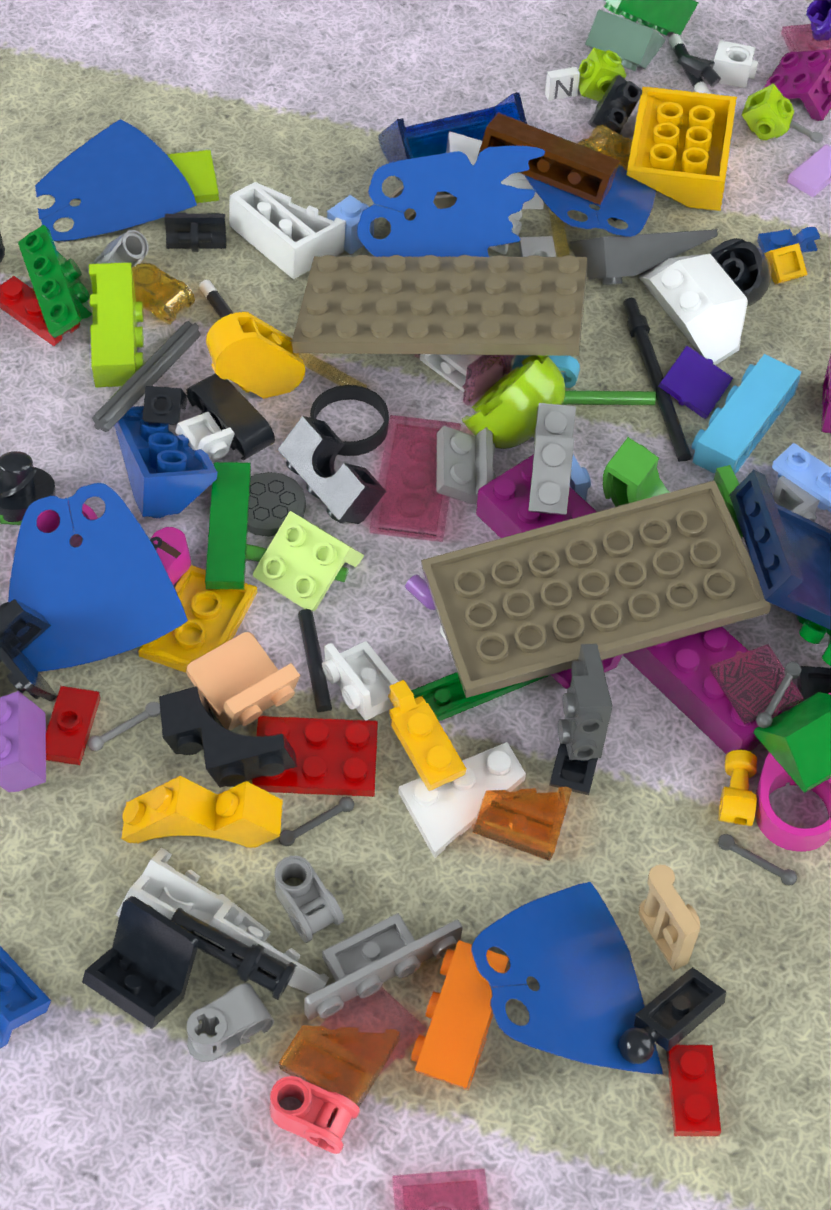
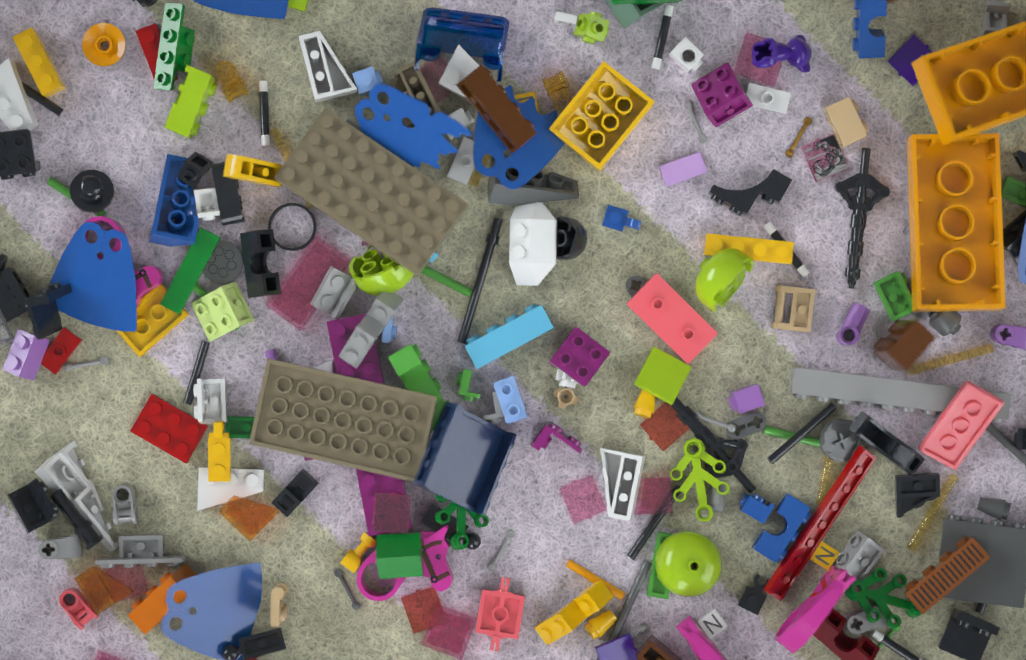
camera: 35 degrees right, 35 degrees up
(126, 248) = (217, 46): light grey piece -> none
(145, 376) = (195, 143): dark grey axle -> none
(187, 809) = (96, 439): yellow arch -> none
(195, 231) = (274, 41): black hips -> none
(228, 756) = (116, 387): black arch -> none
(241, 680) = (151, 373): light nougat bracket -> none
(288, 837) = (134, 464): dark grey hinge -> none
(586, 707) = (296, 488): dark grey plate -> none
(616, 104) = (582, 61): black hips -> none
(695, 382) = (498, 296): dark purple piece -> none
(700, 68) = (661, 50): black bar -> none
(768, 113) = (680, 115): lime brick -> none
(786, 263) = (607, 236): yellow tile -> none
(791, 671) = (411, 518): dark grey hinge -> none

